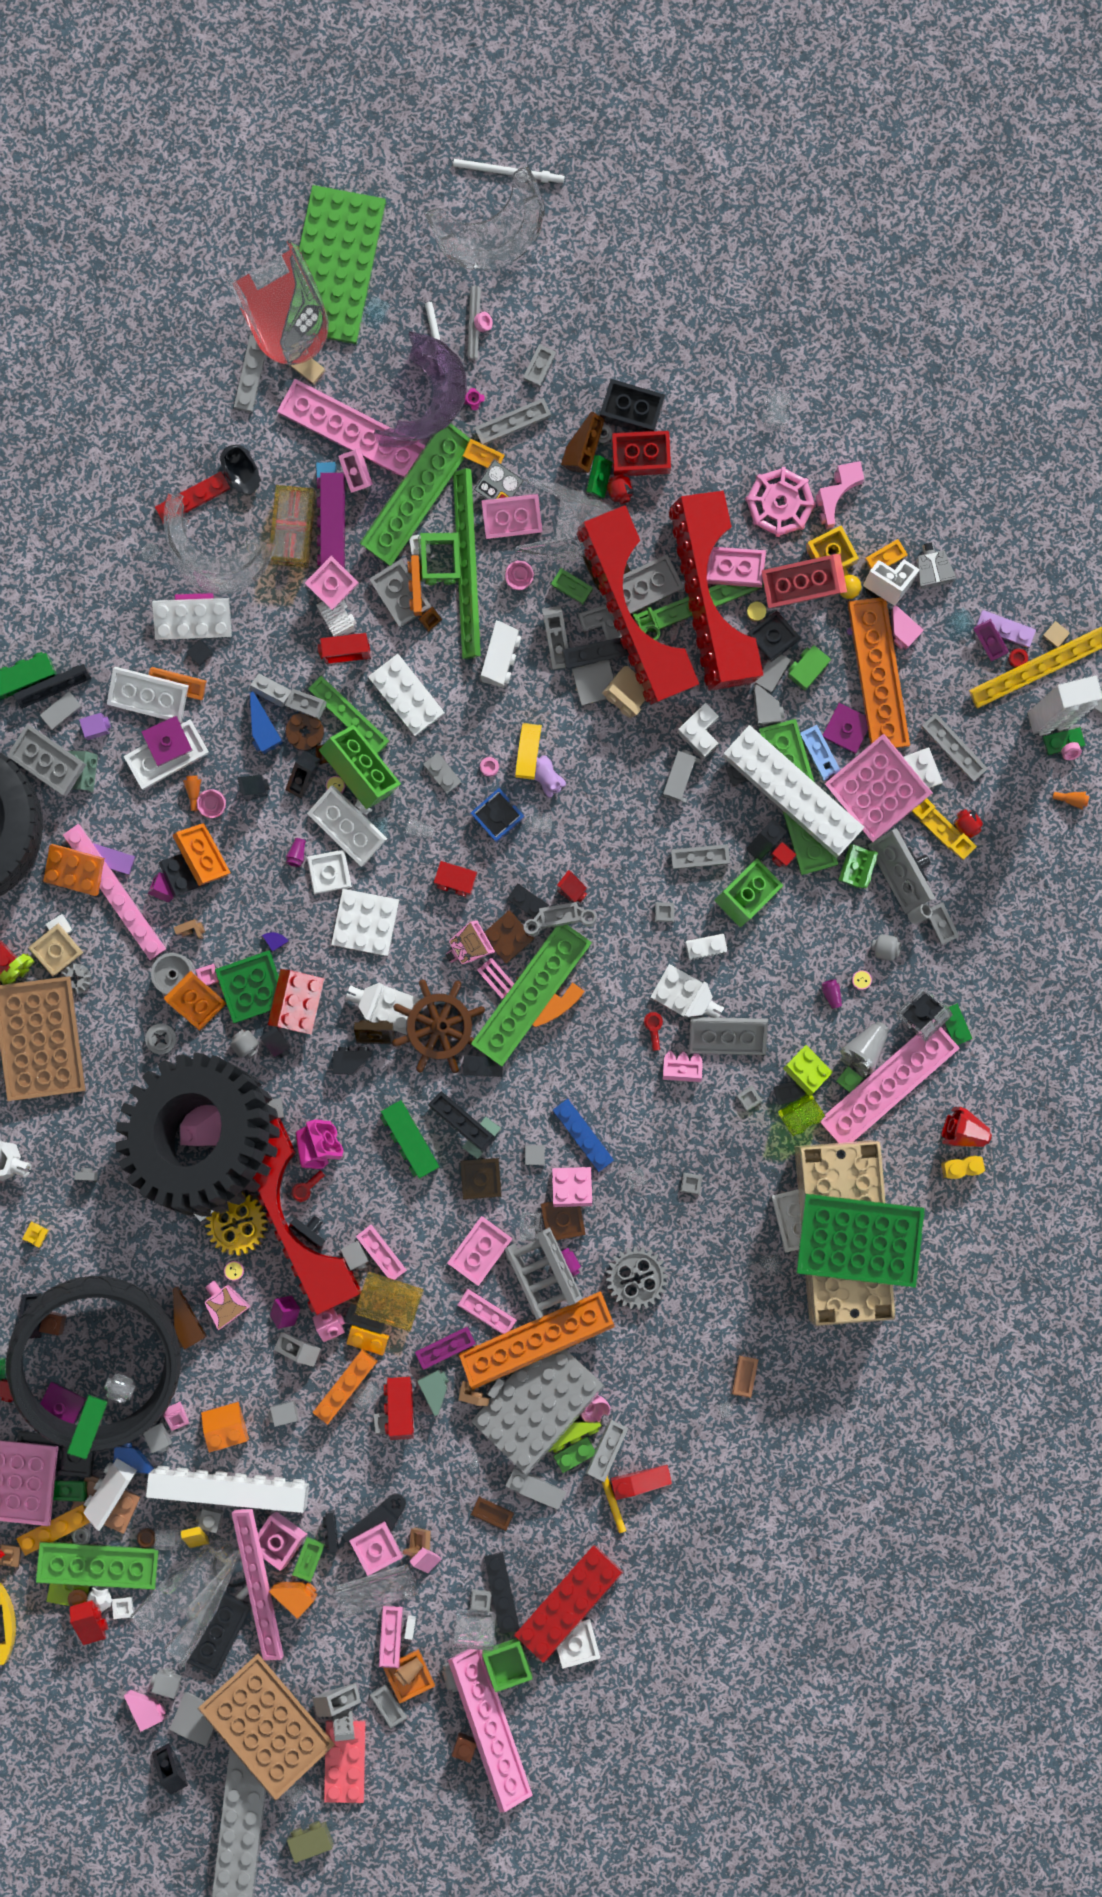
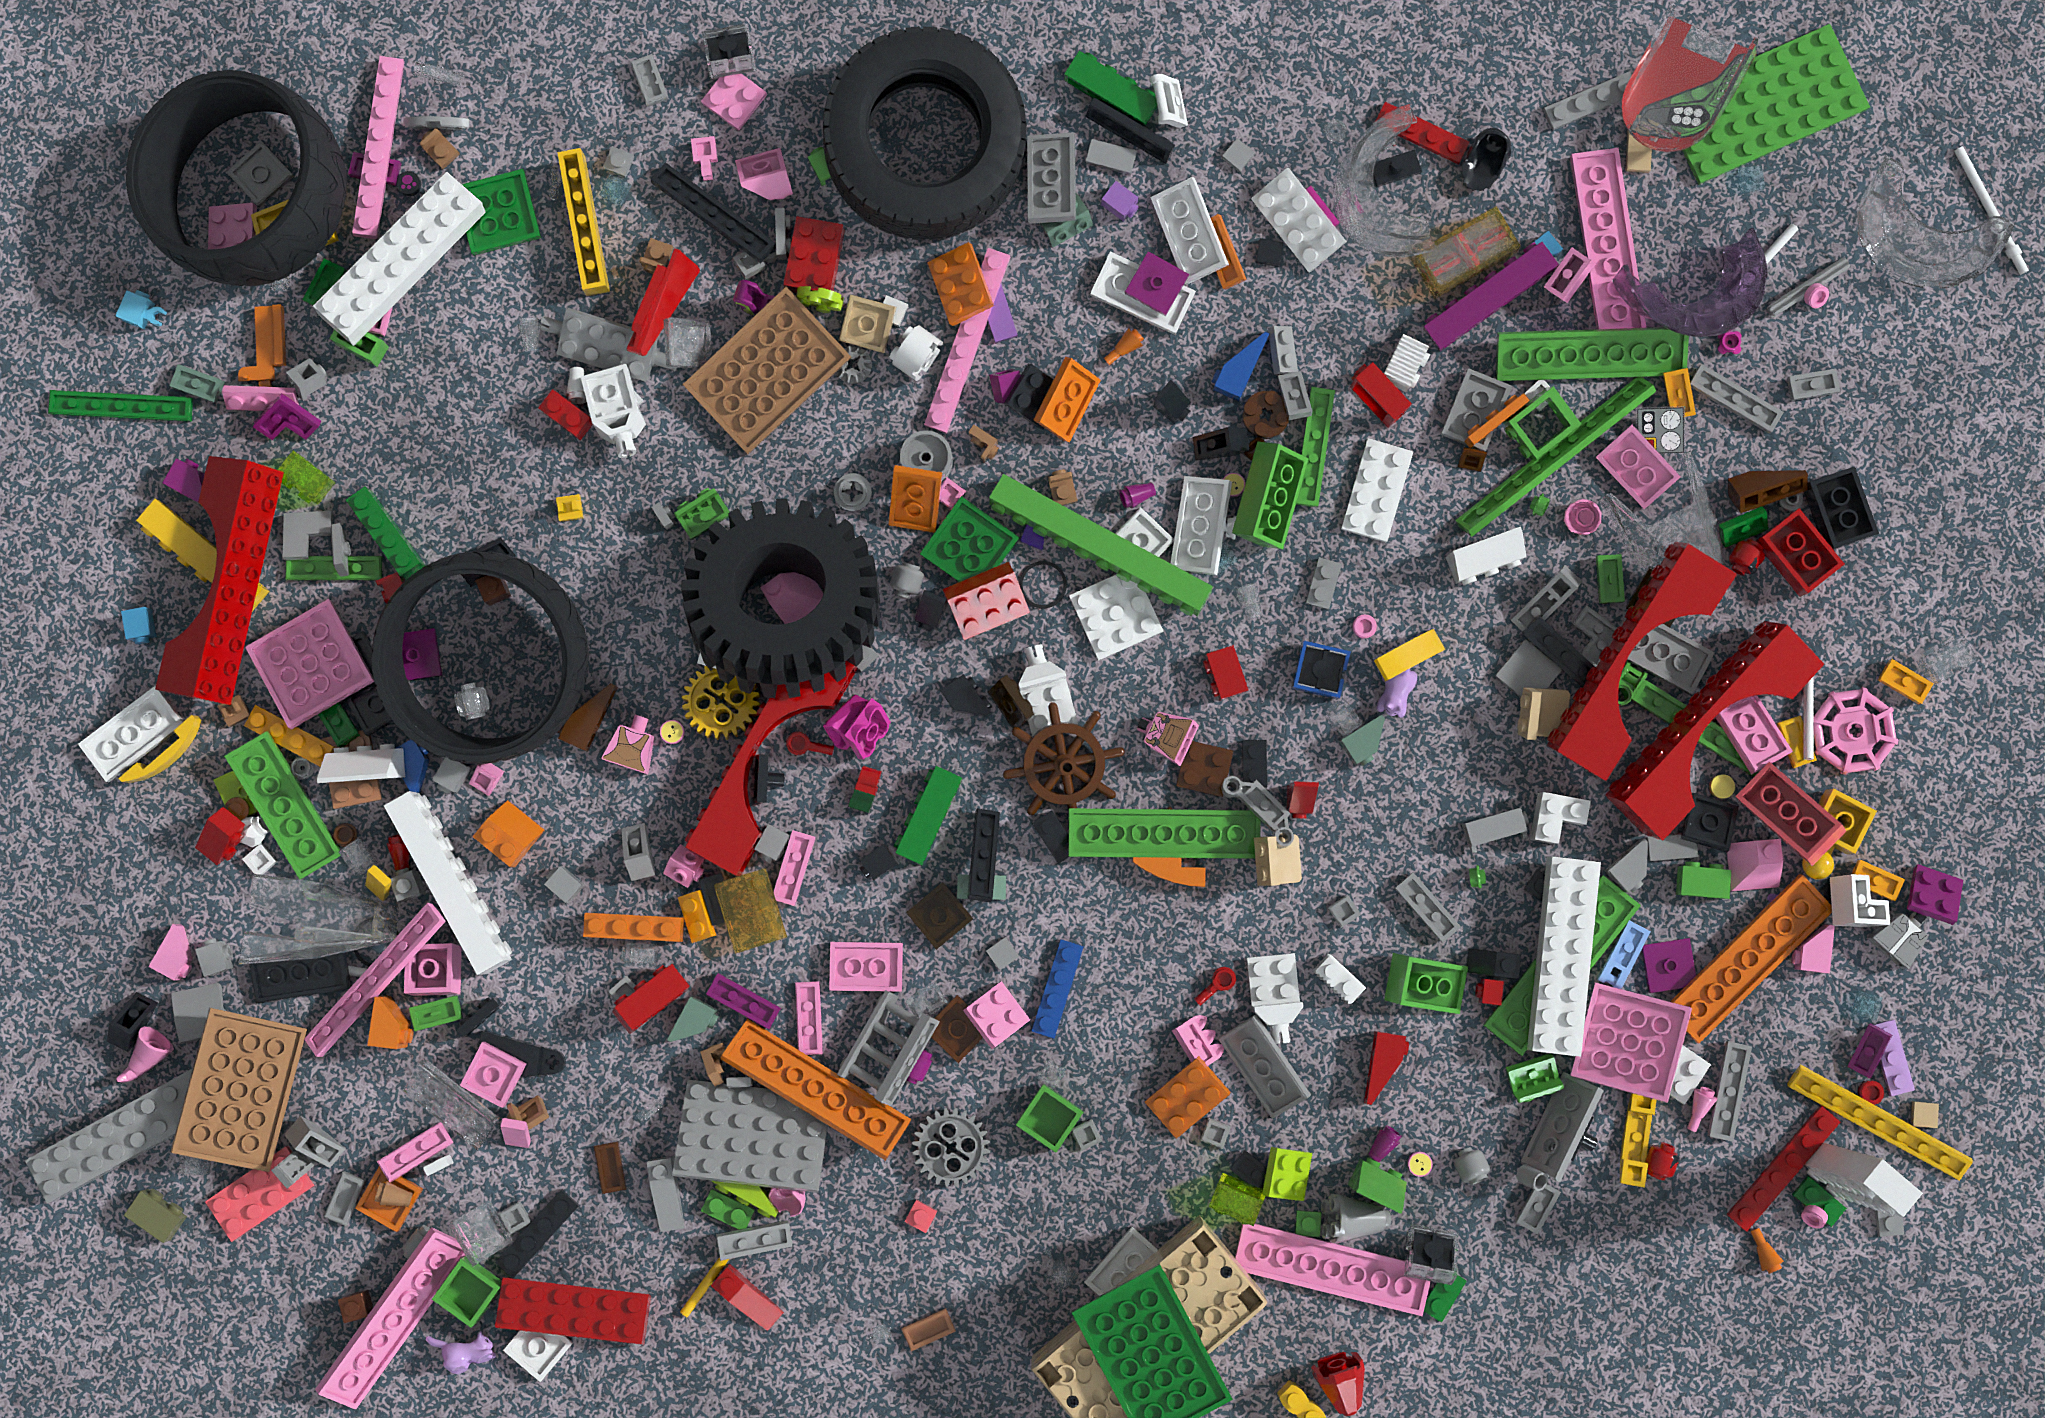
camera: 55 degrees right, 0 degrees up
(51, 646) = (1169, 100): none -> white plate
(87, 1427) = (410, 696): green tile -> none
(98, 931) = (916, 351): none -> white brick
(103, 1148) = (701, 513): none -> bright green bracket
(120, 627) = (1238, 155): none -> light grey tile
(183, 1509) = (398, 852): none -> red cone
(197, 1770) = (148, 1052): none -> bright pink hat
(204, 530) = (1396, 168): none -> black tile
(208, 800) = (1125, 373): bright pink hair -> none
(257, 899) = (1062, 487): none -> medium nougat bracket
(284, 1312) = (666, 812): magenta panel -> none
(312, 939) = (1064, 584): none -> black piece
(313, 901) = (1100, 545): none -> bright green brick
(331, 583) = (1437, 333): bright pink plate -> none
(363, 1169) = (865, 789): none -> leg
(417, 1195) = (877, 863): none -> black brick
(486, 965) = (1159, 767): bright pink tile -> none
(491, 597) = (1539, 505): none -> bright green plate
(545, 1700) = (460, 1355): none -> lavender animal
(564, 821) = (1363, 742): none -> sand green slope
(603, 934) = (1277, 865): none -> tan bracket
(663, 1199) = (1049, 1117): none -> bright green piece
(668, 1329) = (921, 1216): none -> coral plate
(703, 810) = (1477, 877): none -> bright green plate
(713, 1100) = (1187, 1097): none -> orange plate
(752, 525) = (1808, 721): none -> white bar
(759, 541) = (1793, 733): none -> yellow tile
(772, 446) = (1905, 681): none -> light orange plate
(778, 953) = (1385, 1058): none -> red slope
(821, 626) = (1755, 864): none -> bright pink slope
(847, 476) = (1930, 782): bright pink arch -> none
(855, 1016) = (1378, 1184): none -> bright green slope
(921, 526) = (1935, 894): none -> magenta plate
(949, 770) = (1702, 1102): none -> bright pink cone
(1027, 749) = (1783, 1168): none -> red plate

